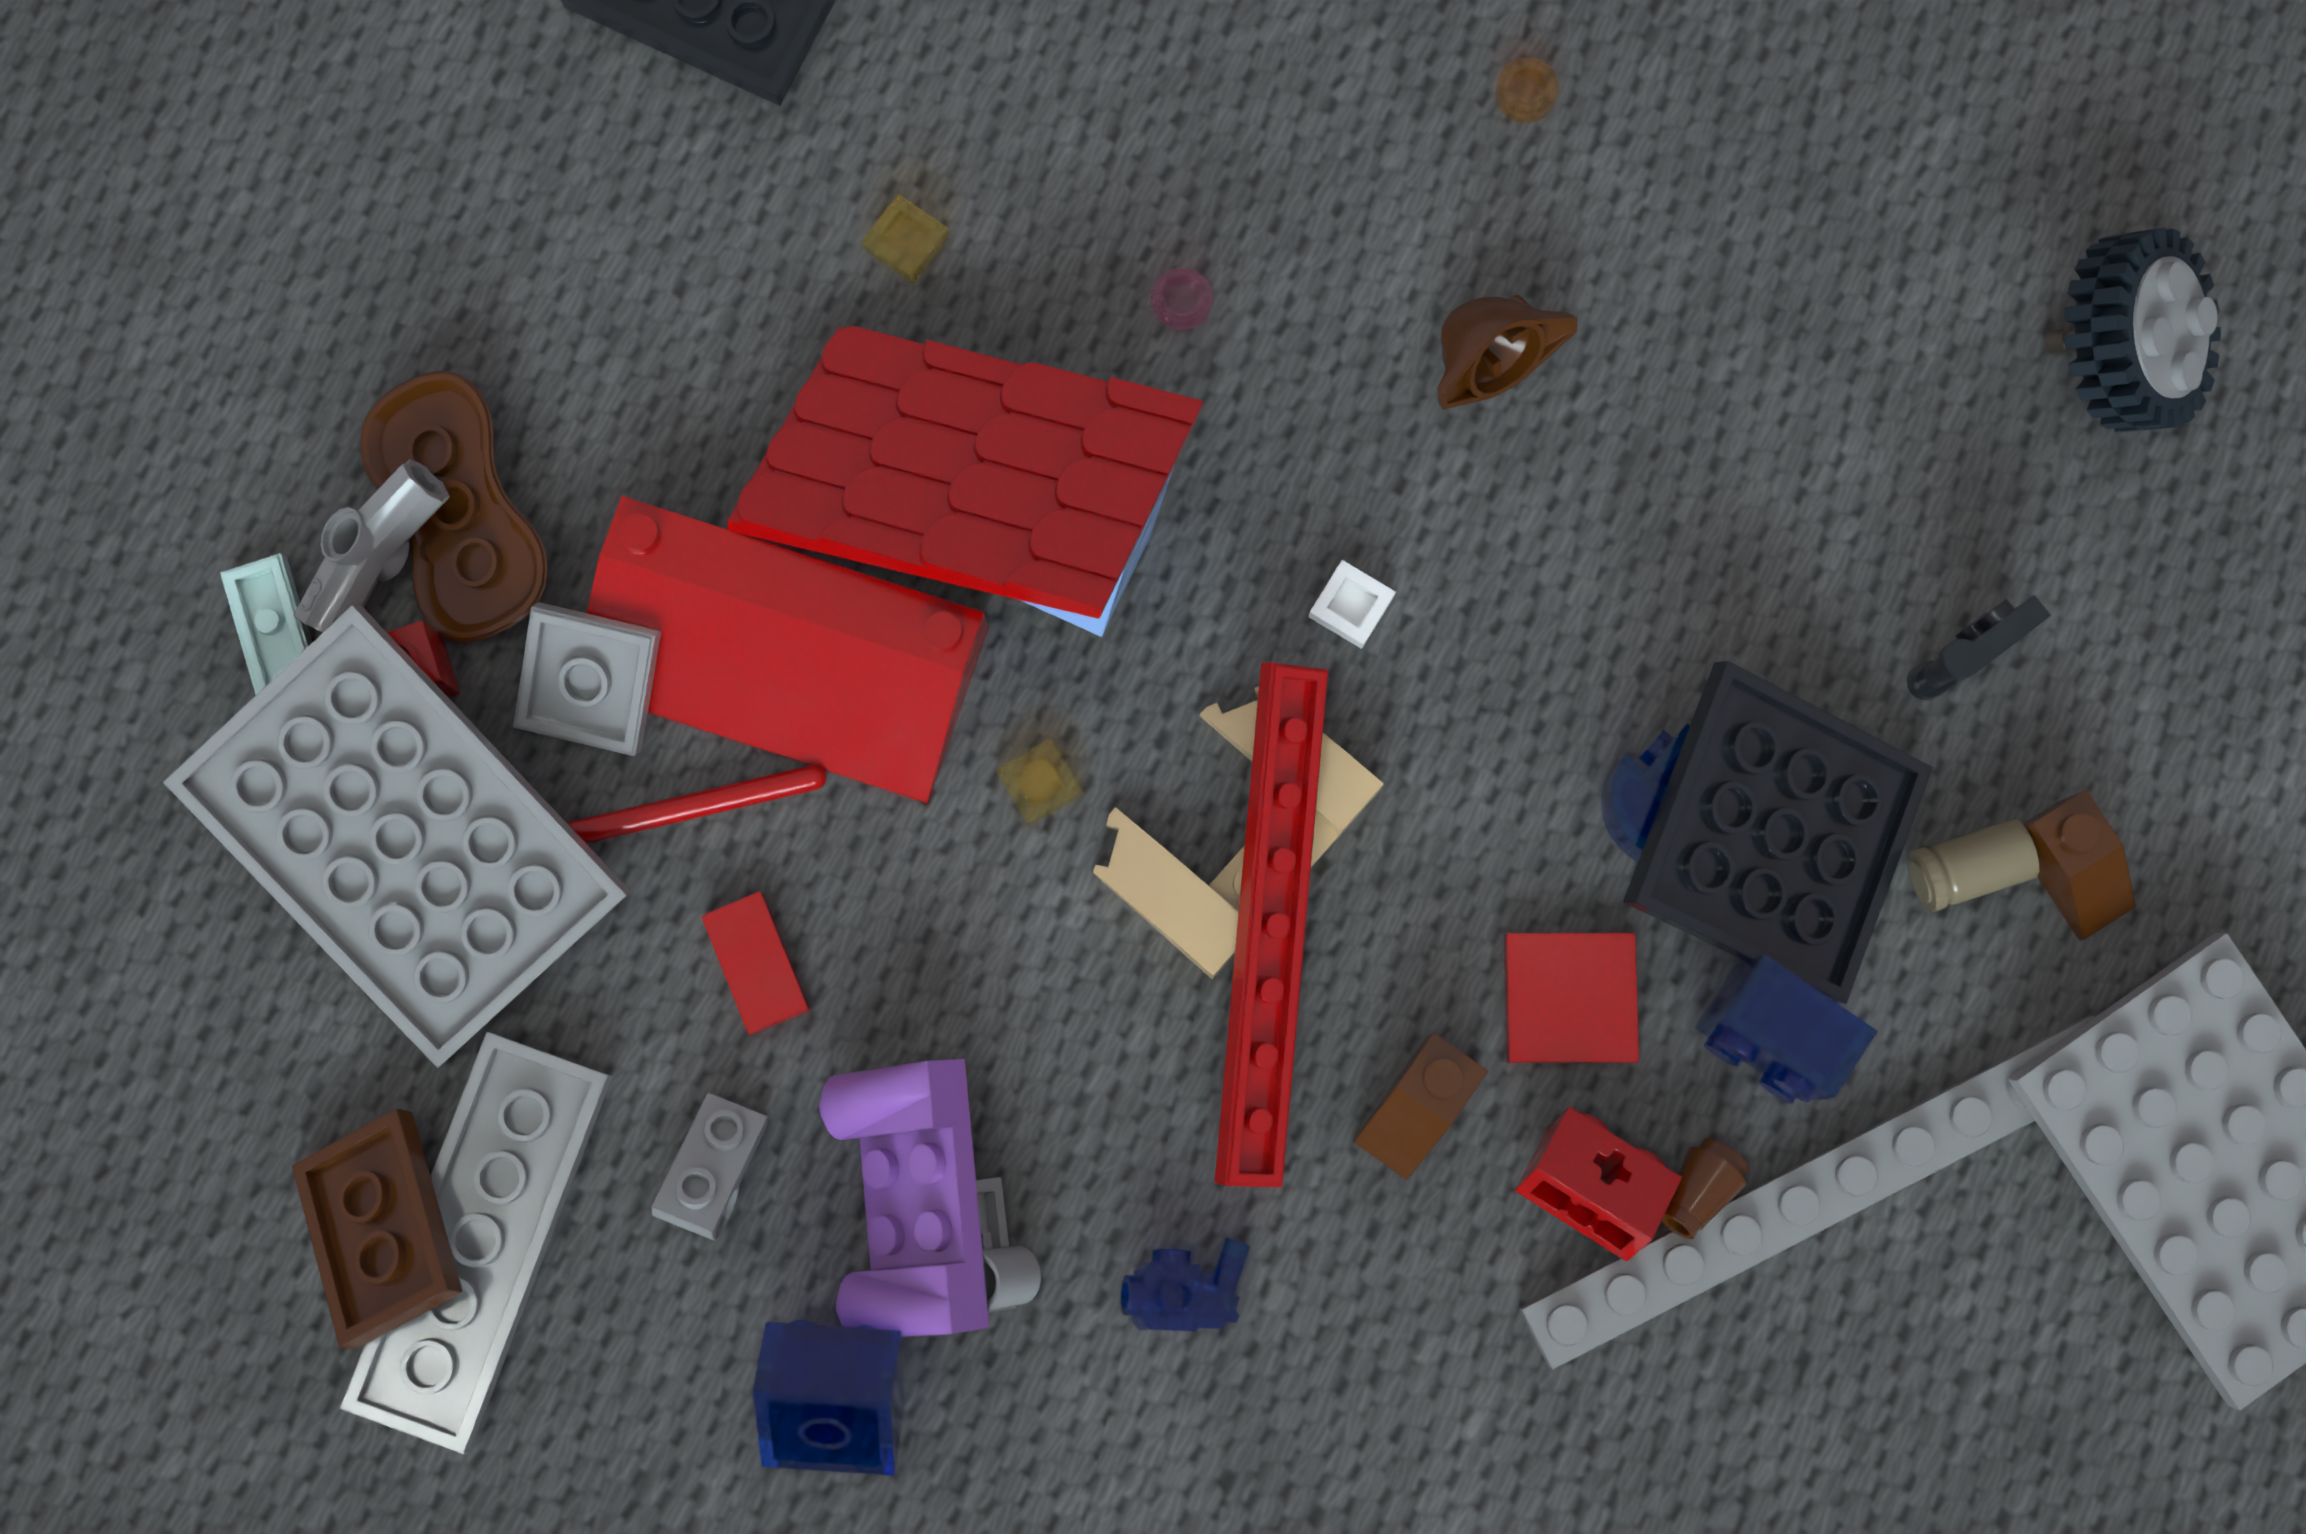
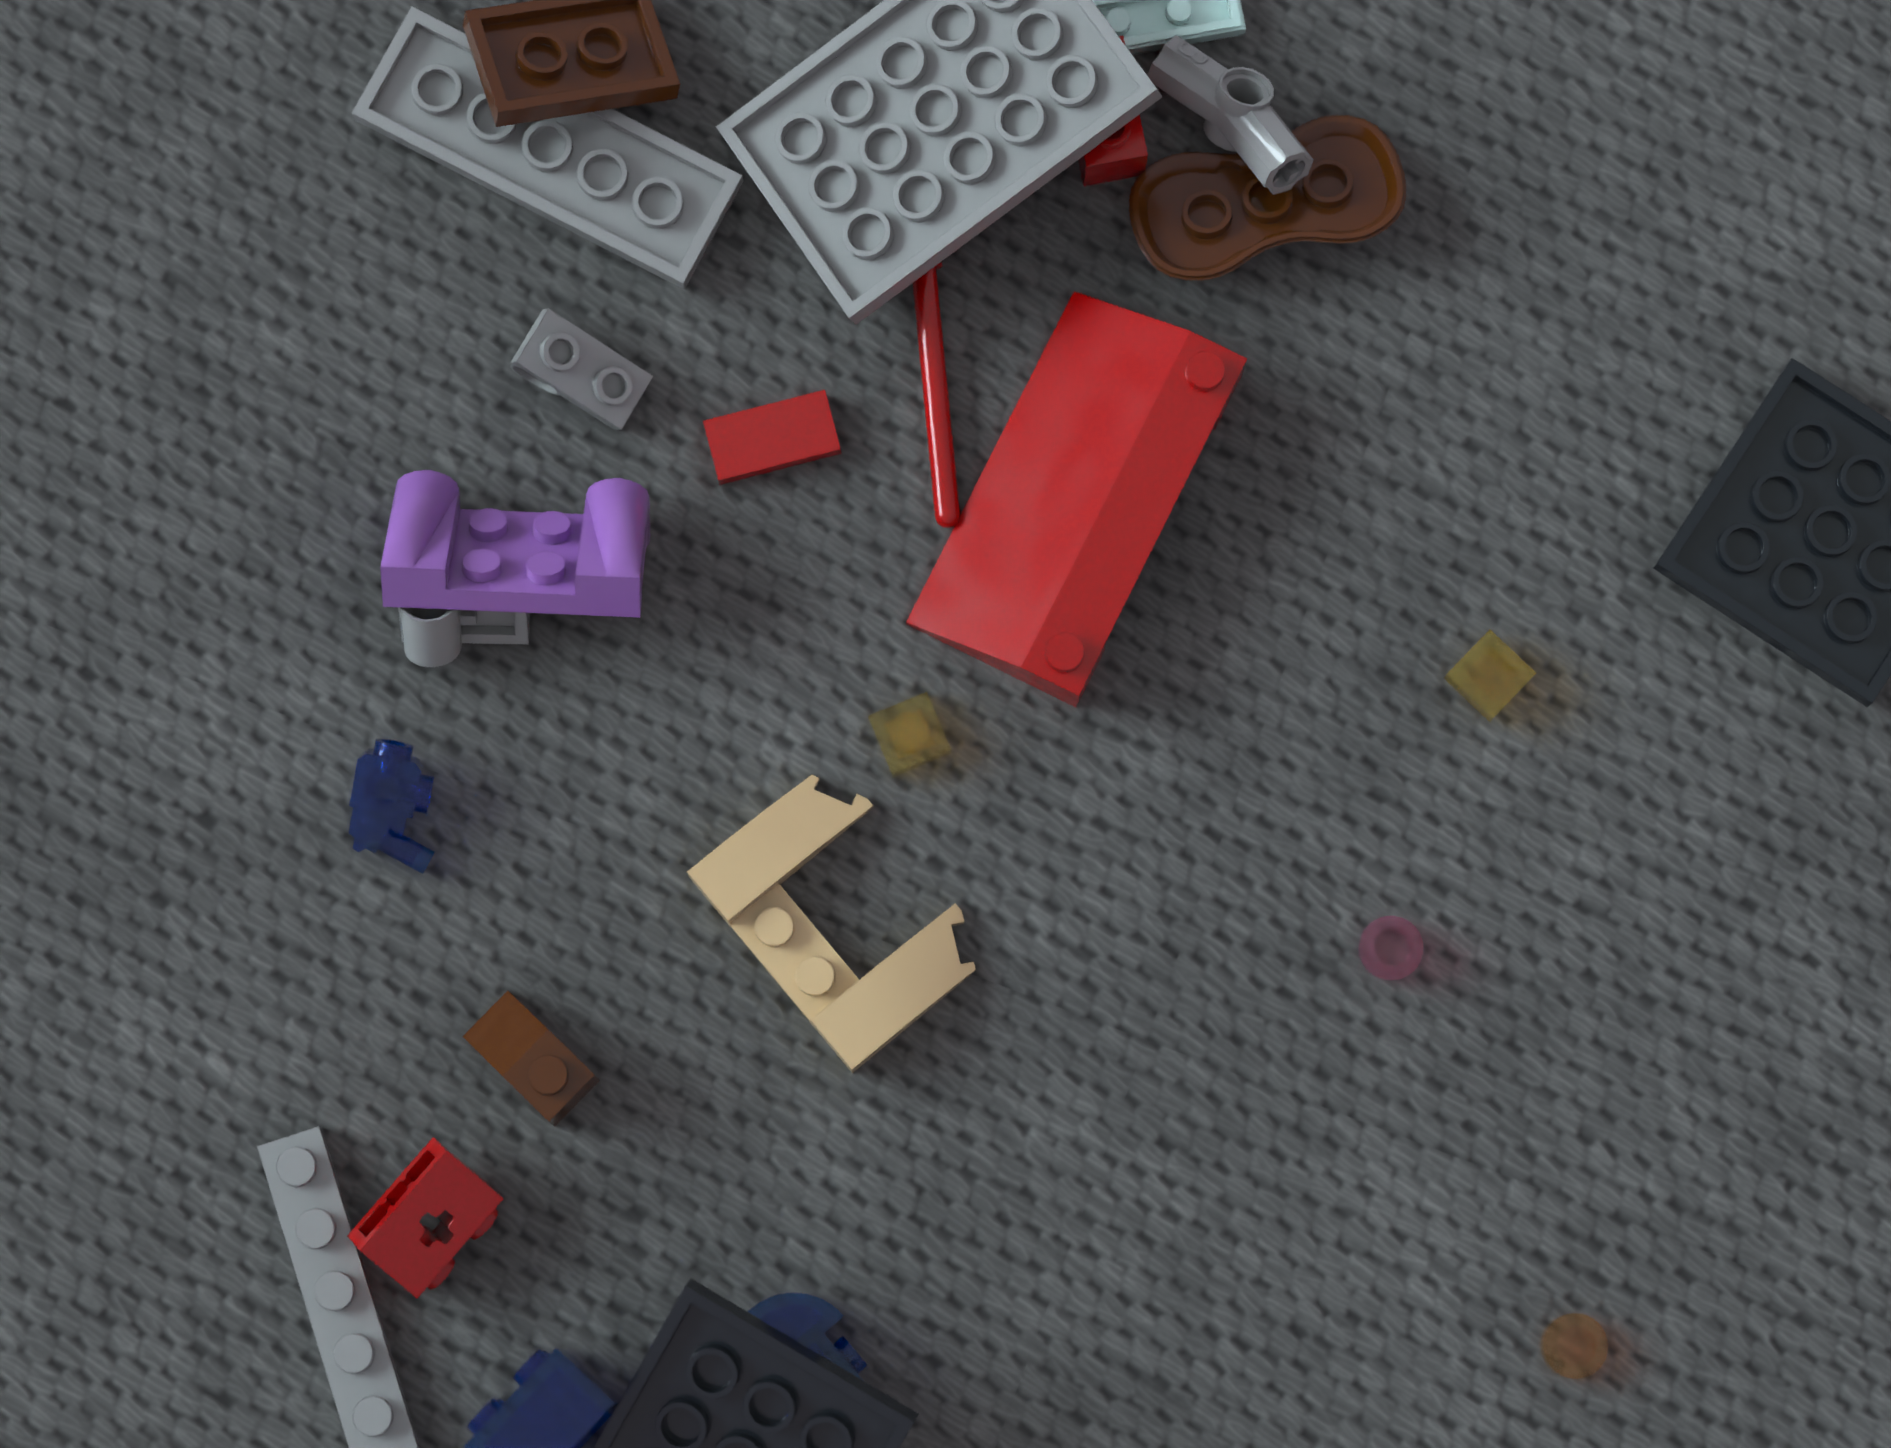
camera: 95 degrees right, 0 degrees up
(586, 679) = (1074, 307): light grey tile -> none
(829, 1398) = (343, 451): clear blue brick -> none
(971, 471) = (1219, 697): red piece -> none
(1271, 925) = (729, 936): red tile -> none
(1351, 604) = (1045, 1073): white tile -> none
(1495, 346) = (1294, 1259): reddish brown hat -> none
(1571, 998) = (613, 1228): red tile -> none
(1708, 1183) = (405, 1323): reddish brown cone -> none

